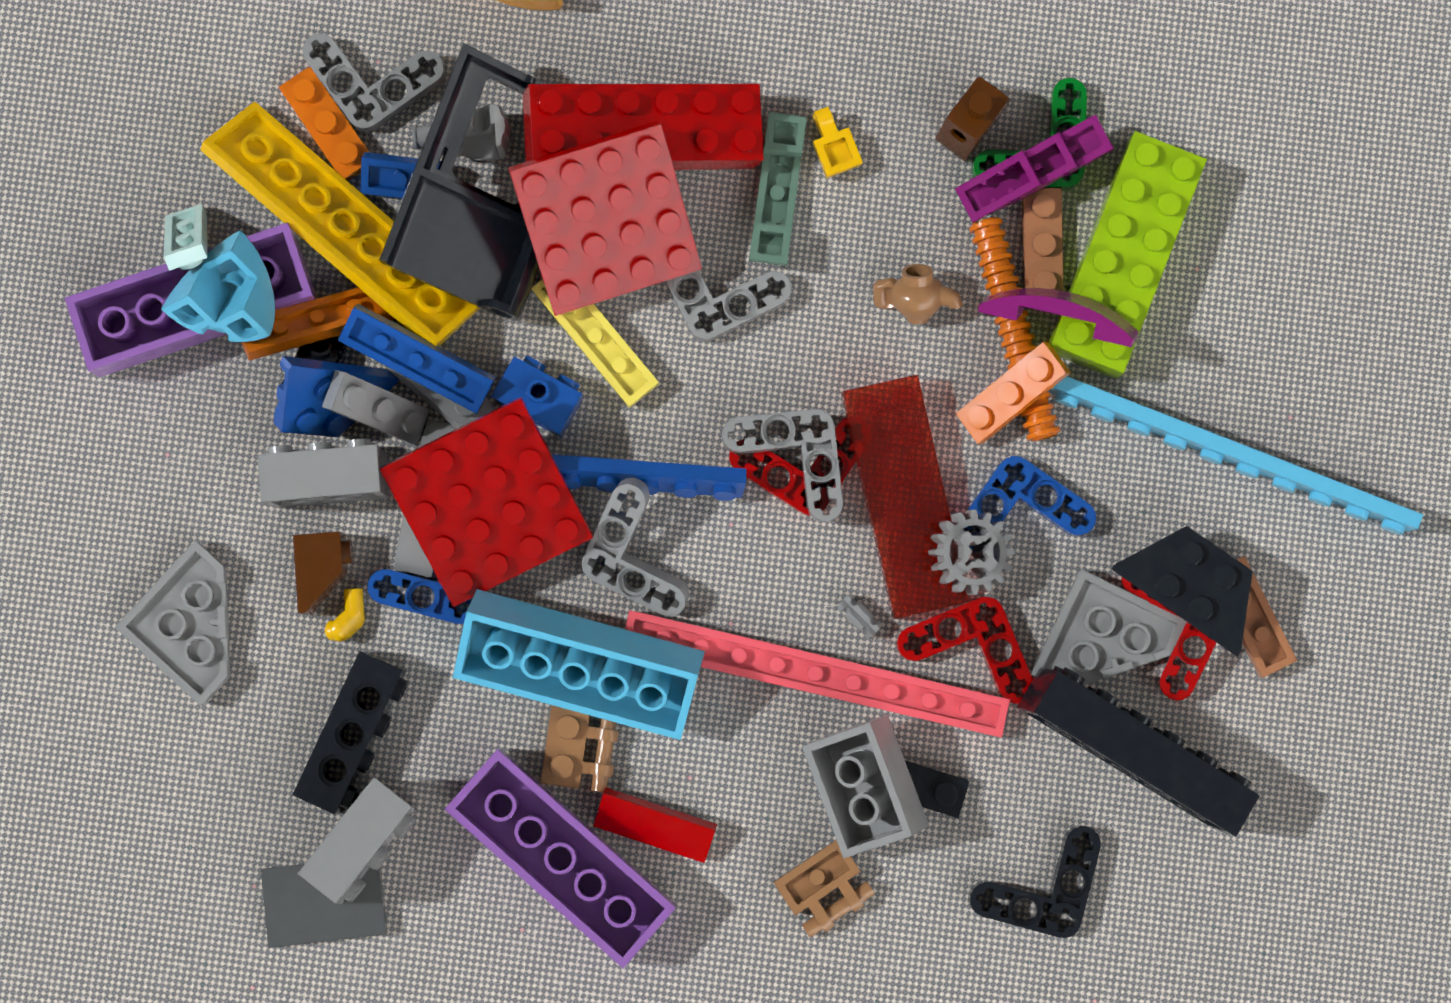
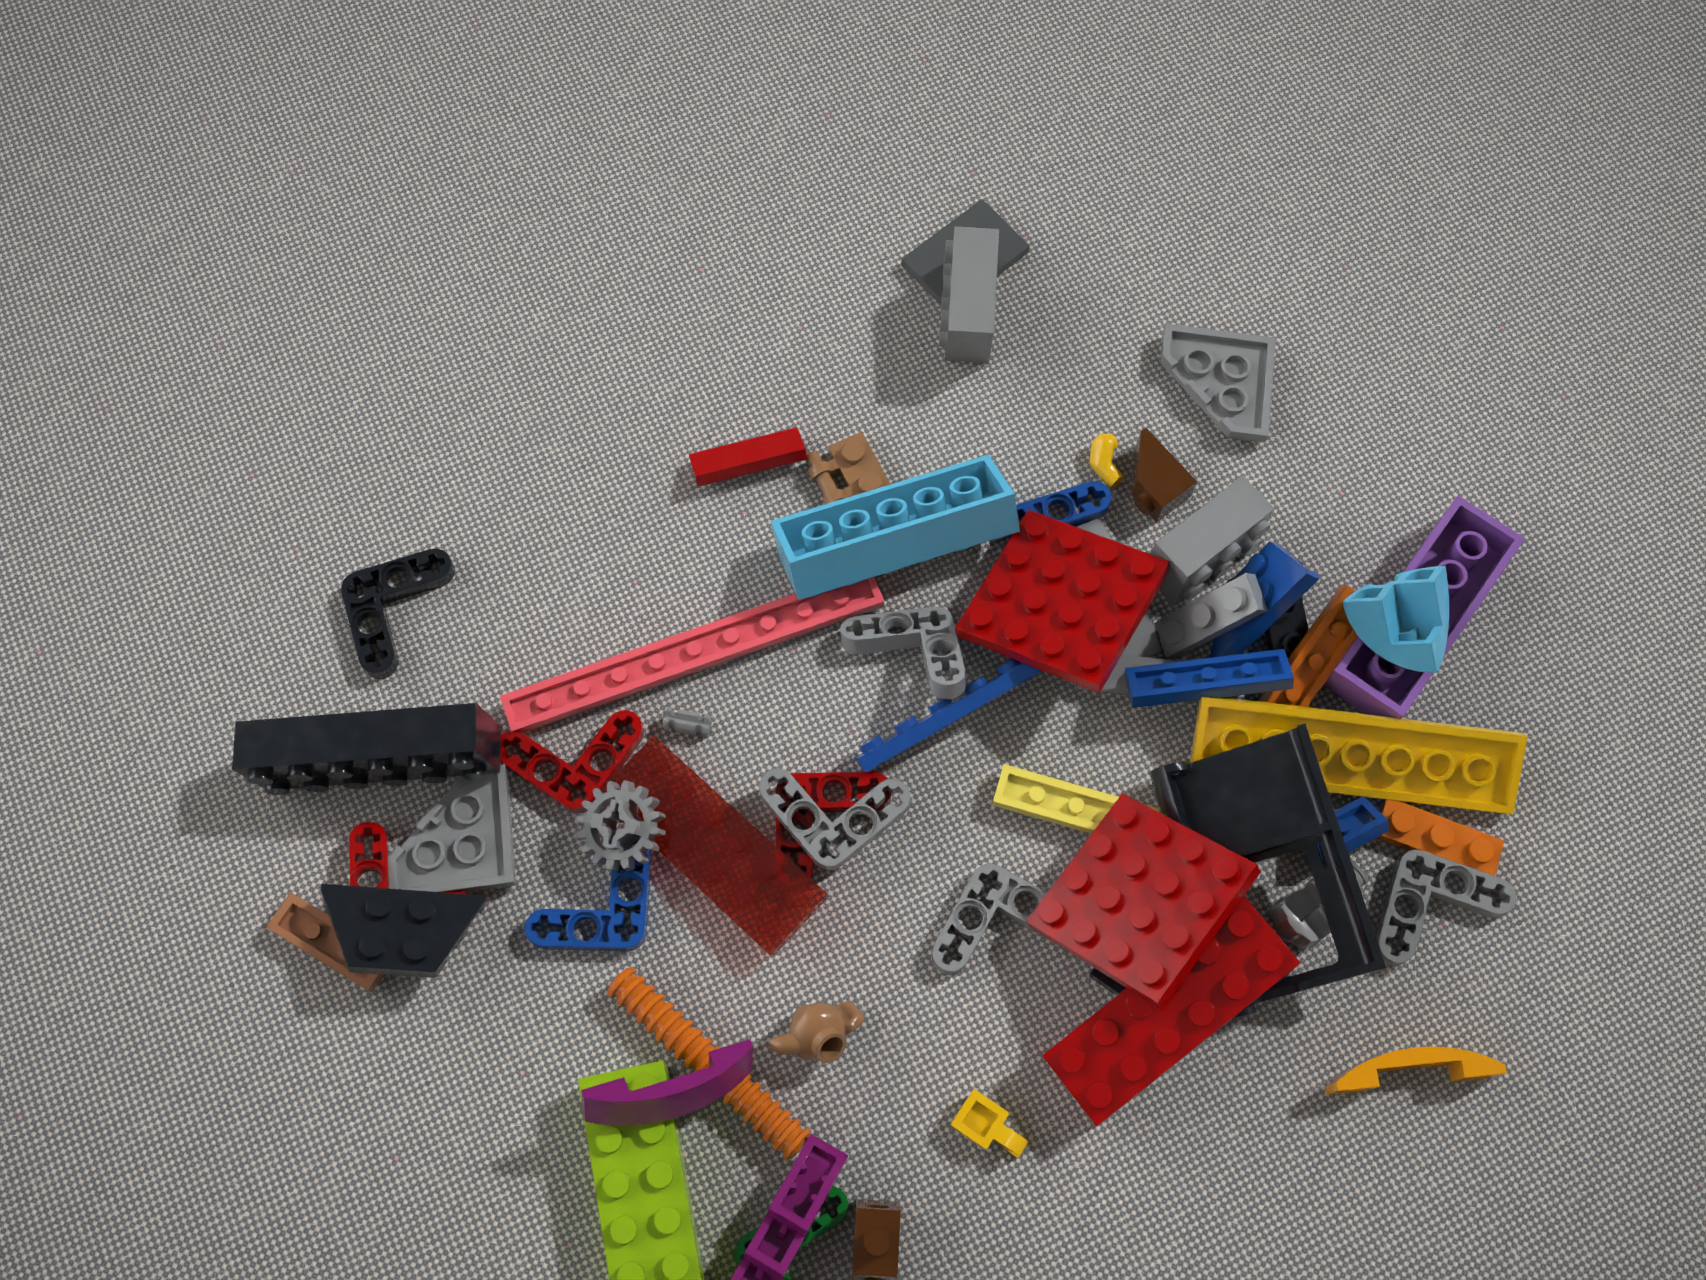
camera: 150 degrees right, 15 degrees down
(185, 238) = (1473, 648): light aqua plate -> none
(315, 783) = (1033, 324): black brick -> none
(548, 399) = (1085, 724): blue brick -> none
(561, 857) = (804, 383): medium lavender brick -> none
(777, 189) = (1009, 1045): sand green slope -> none
(815, 879) = (586, 500): medium nougat plate -> none
(865, 786) = (591, 580): light grey brick -> none
(938, 790) = (541, 622): black plate -> none
(1013, 392) = (671, 996): plate -> none
(1042, 239) = (730, 1163): nougat plate -> none
(1248, 460) = (413, 1082): medium azure plate -> none

